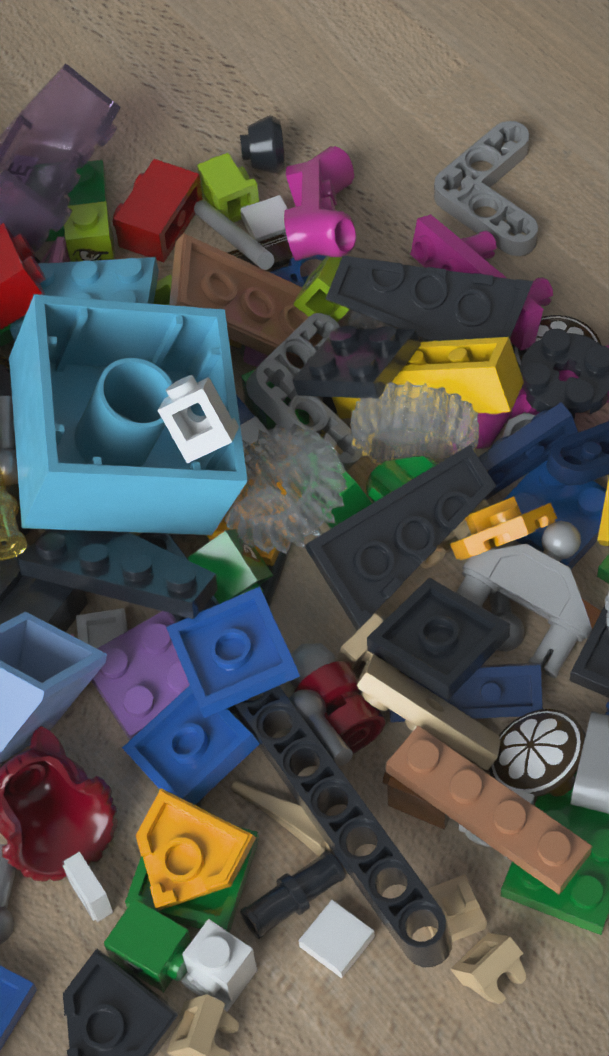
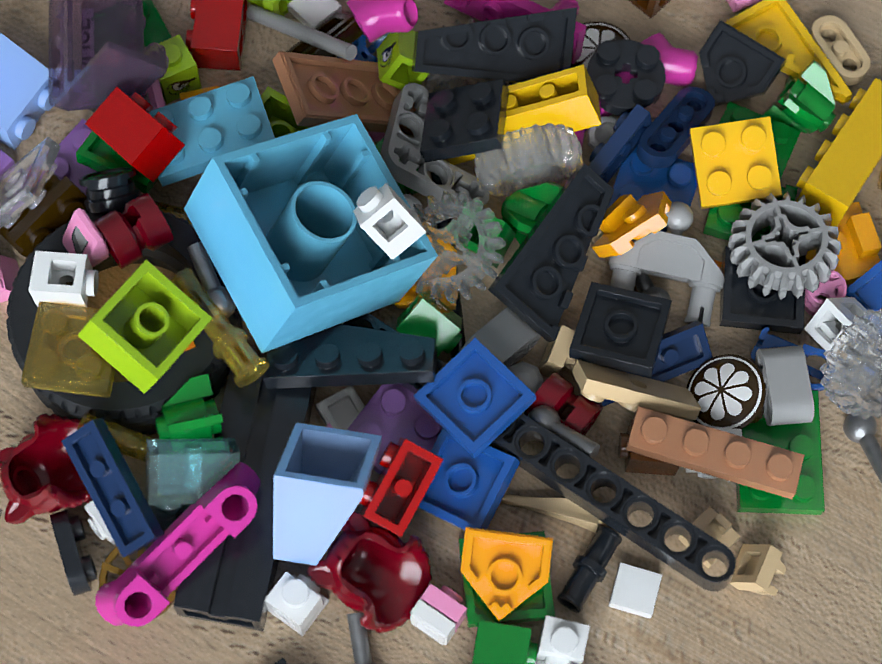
camera: 30 degrees left, 10 degrees up
(110, 872) = (446, 602): none -> bright pink plate
(111, 721) = (400, 485): none -> red brick
(308, 614) = (507, 337): none -> light grey beam

